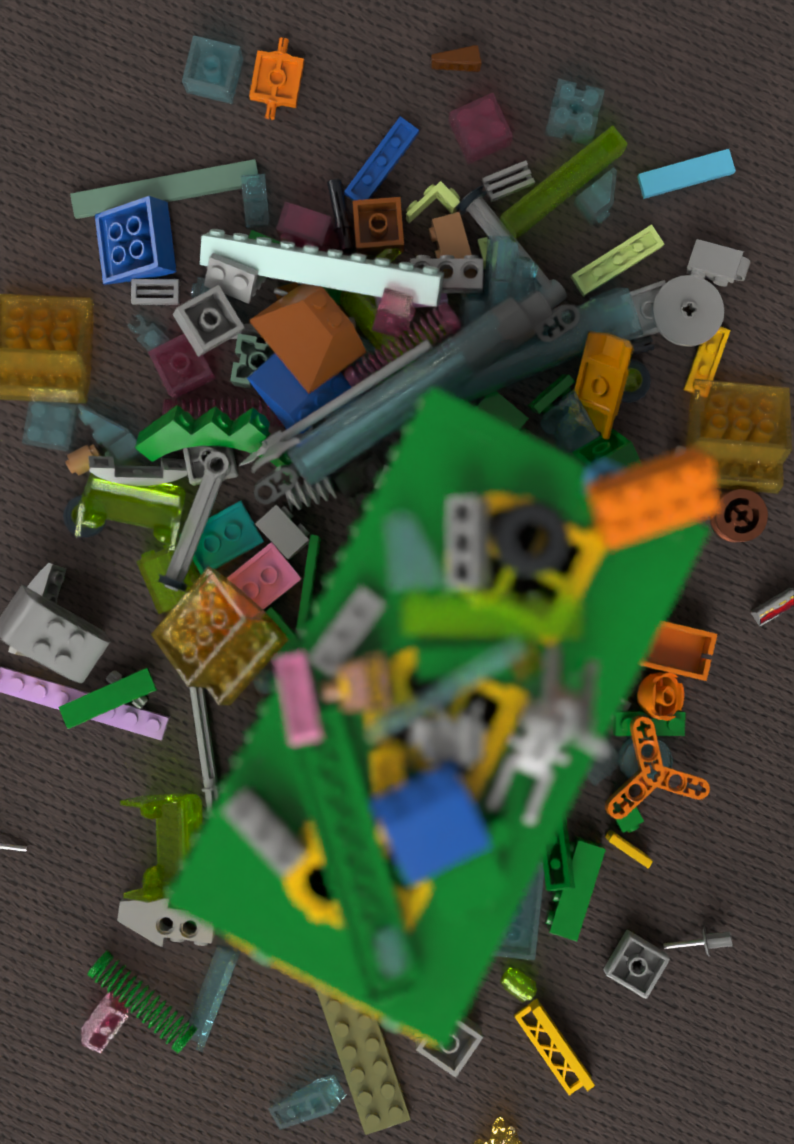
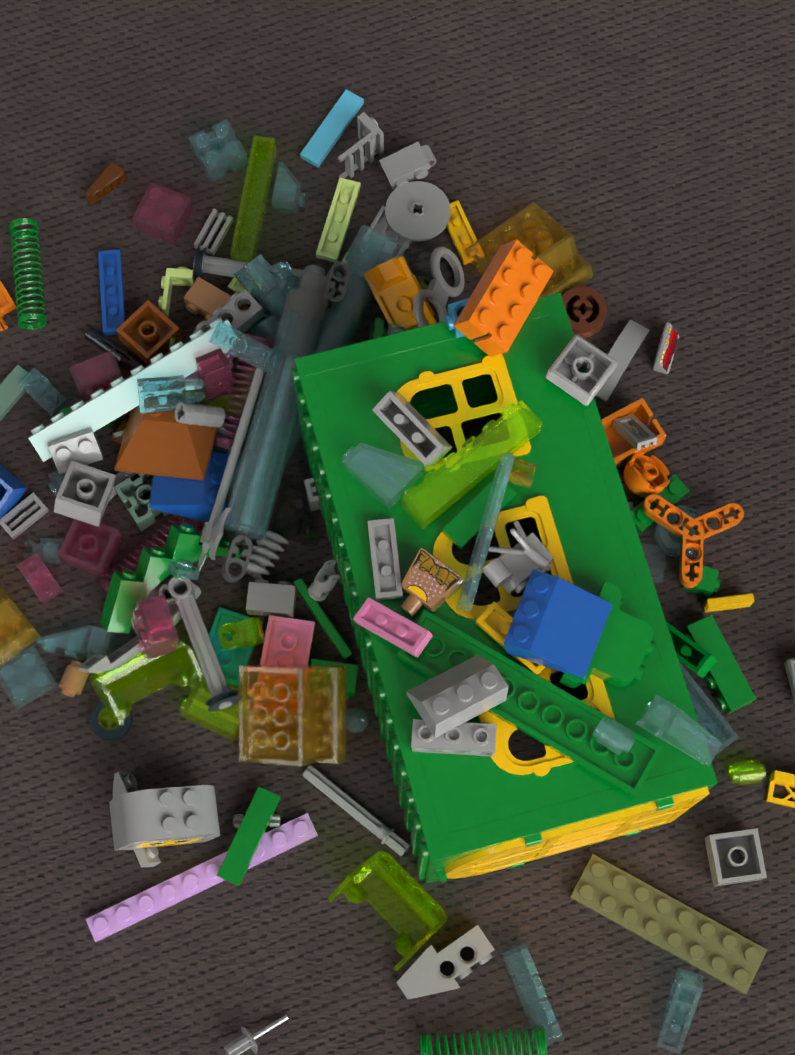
camera: 45 degrees left, 15 degrees down
(122, 357) = (40, 578): none -> clear pink brick
(168, 480) = (155, 627): none -> clear pink brick
(230, 453) = (183, 570): none -> clear light blue plate
(239, 541) = (243, 633): none -> clear neon green piece
(295, 129) = (26, 234): none -> green piece
(296, 804) = (459, 694): none -> light grey slope
(327, 558) = (324, 581): none -> light grey piece
(339, 297) = (166, 392): none -> clear light blue hinge
(349, 338) = (199, 414): none -> light grey axle
(430, 313) = (243, 346): none -> clear light blue plate
(452, 985) = (679, 730): none -> clear light blue slope
(546, 727) = (575, 499): light grey piece -> none
(556, 533) = (450, 371): black tyre -> none
(636, 401) = (438, 289): none -> light grey bar
(675, 629) = (574, 356): none -> light grey brick
(680, 654) = (631, 434): none -> light grey tile
(706, 216) = (371, 137): none -> light grey plate
(731, 580) = (623, 352): none -> light grey slope

